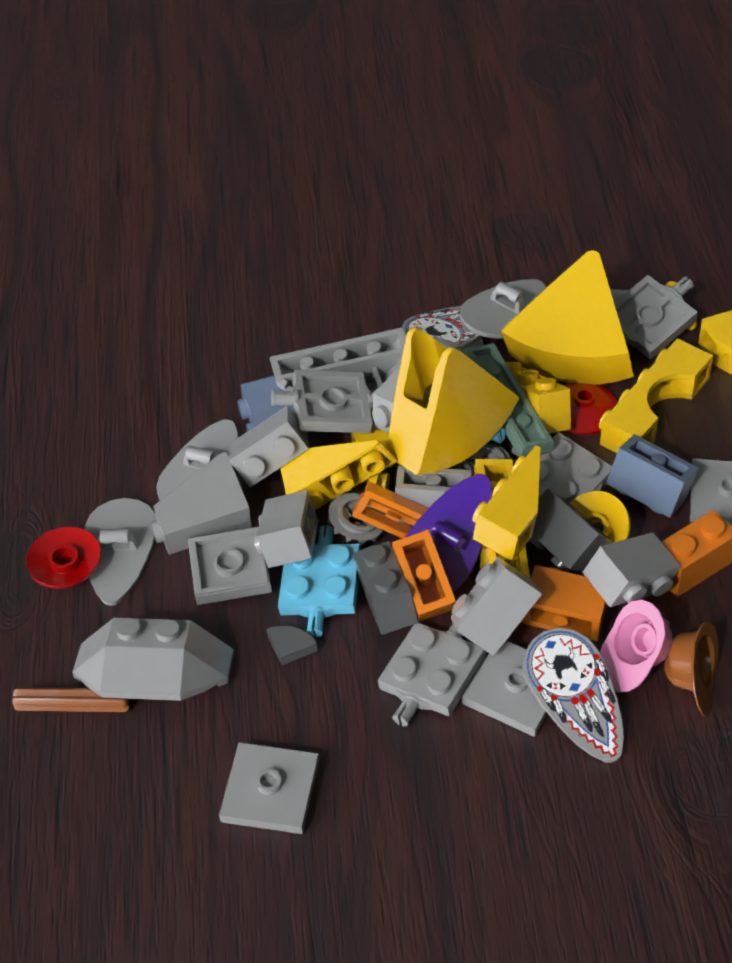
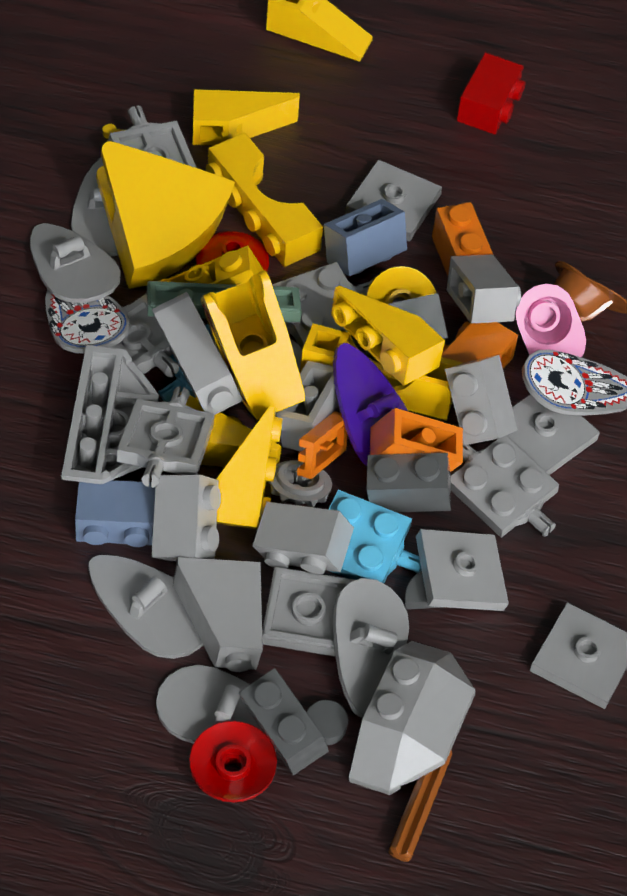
camera: 80 degrees left, 5 degrees up
(102, 572) = (284, 721): none -> dark grey brick
(128, 606) = (329, 719): none -> dark grey tile
(229, 606) = (366, 630): none -> light grey shield
(317, 660) = (461, 570): none -> light grey plate

